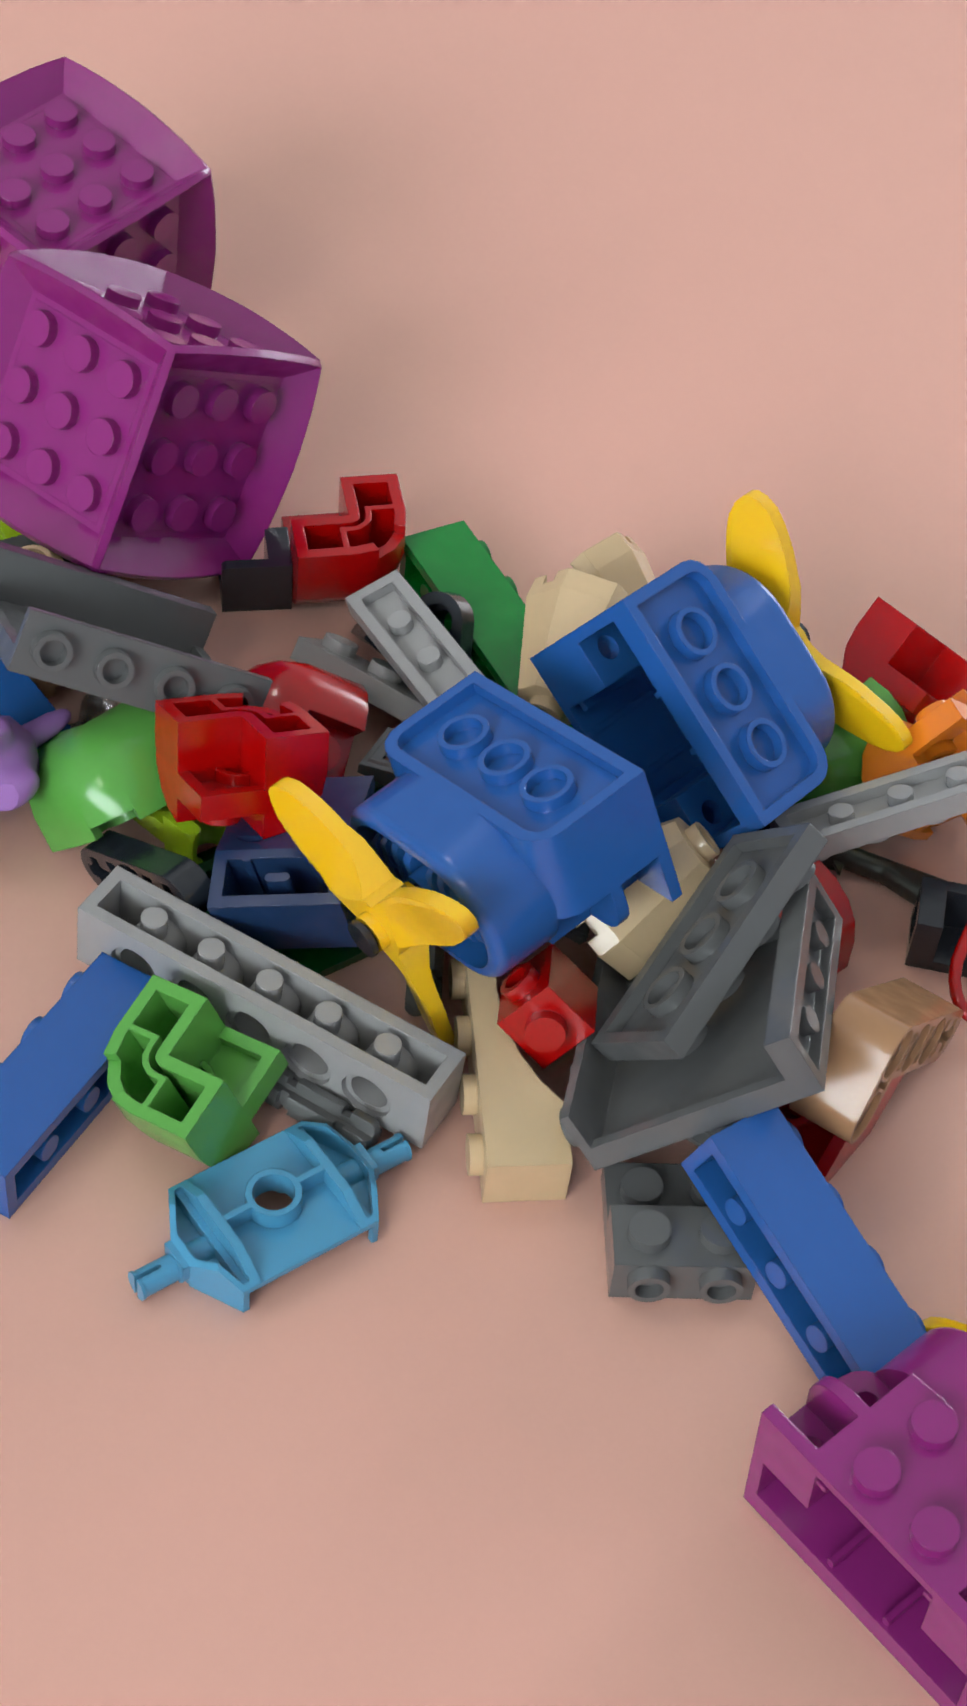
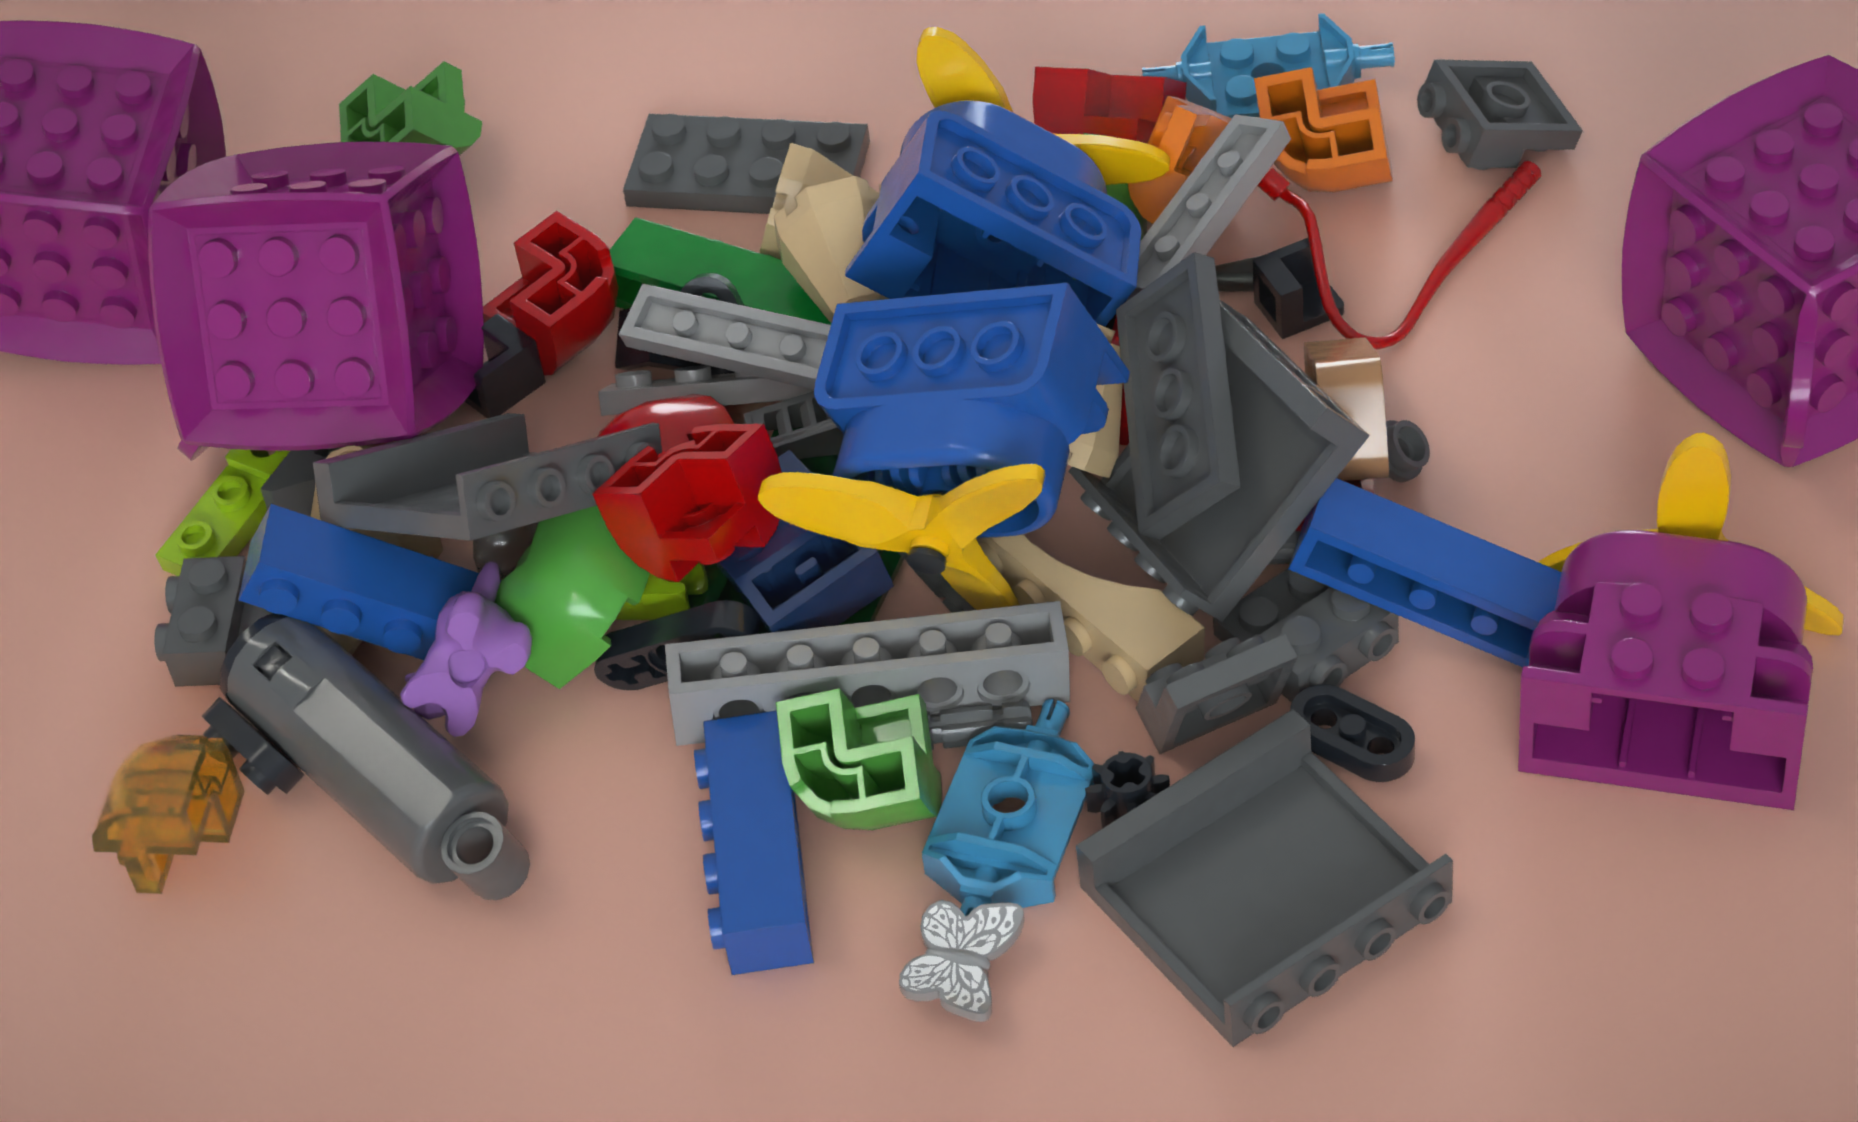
camera: 25 degrees left, 0 degrees up
(105, 1304) = (959, 956): none -> light grey animal
(369, 352) = (420, 114): none -> bright green brick
(380, 1263) = (1123, 785): none -> black gear
(420, 1428) = (1260, 880): none -> dark grey panel
(529, 1226) = (1215, 692): none -> dark grey plate
(547, 1005) = (1087, 532): red brick -> none
(573, 508) = (729, 160): none -> dark grey plate
(624, 1357) = (1356, 733): none -> black plate
(917, 1133) = (1406, 450): none -> dark grey plate

